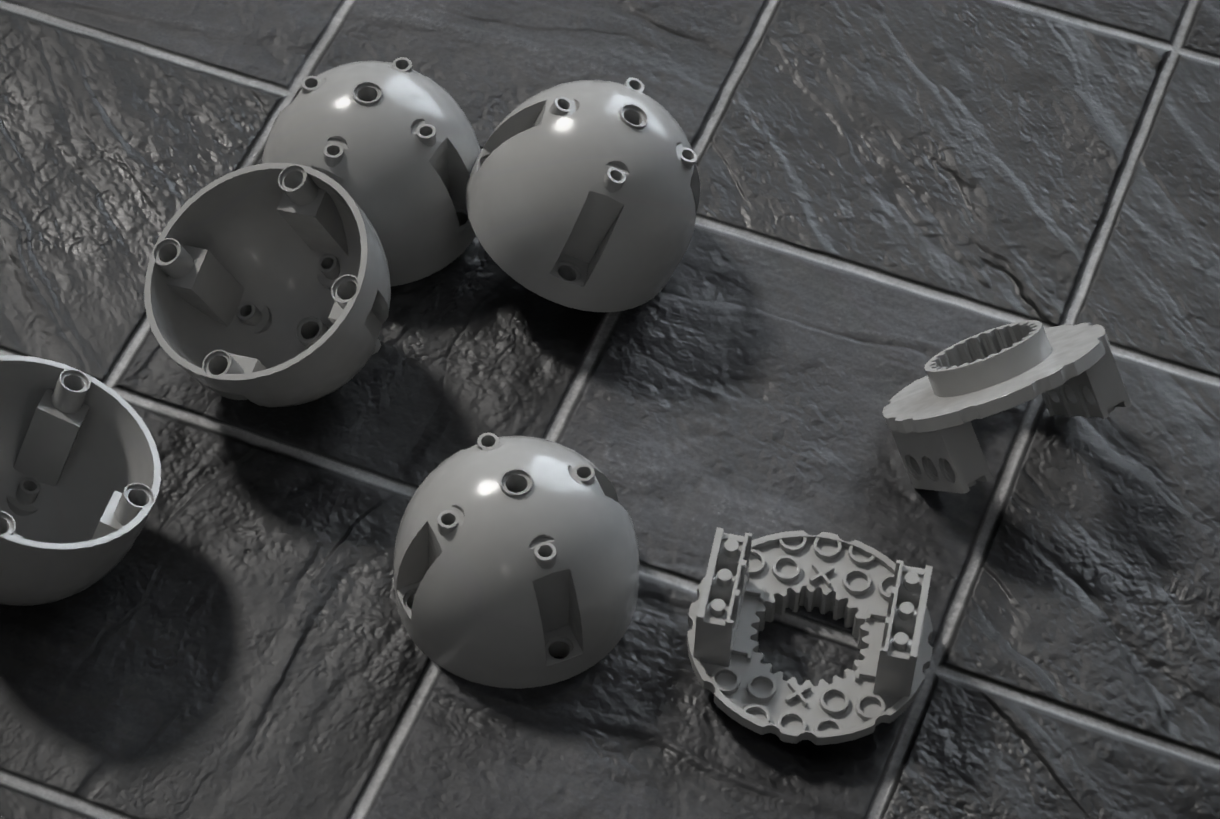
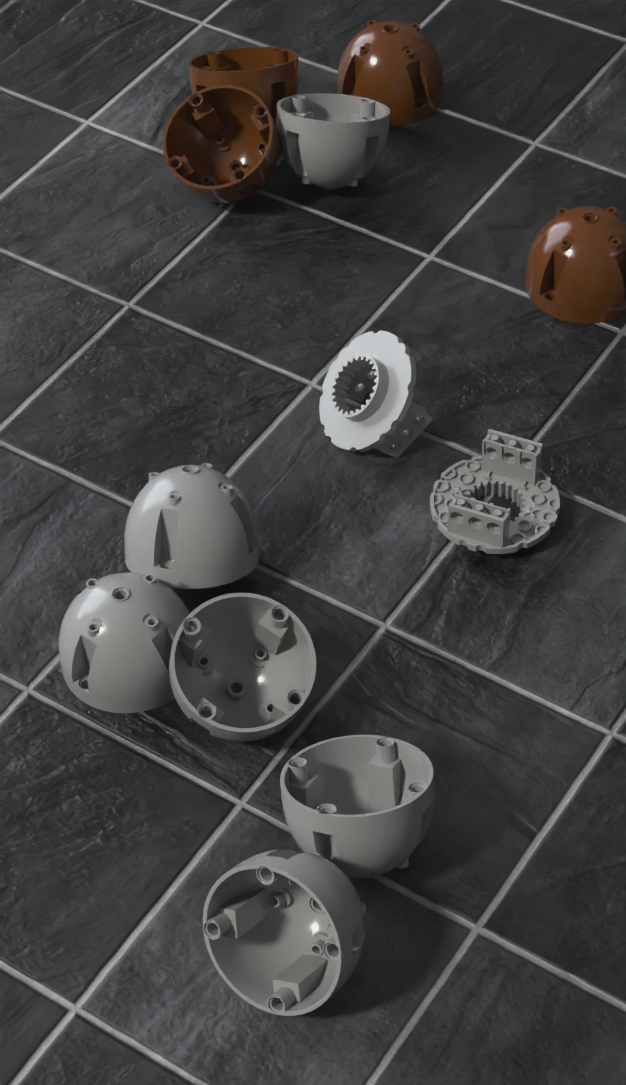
camera: 75 degrees left, 5 degrees down
(514, 578) = (426, 612): light grey piece -> none

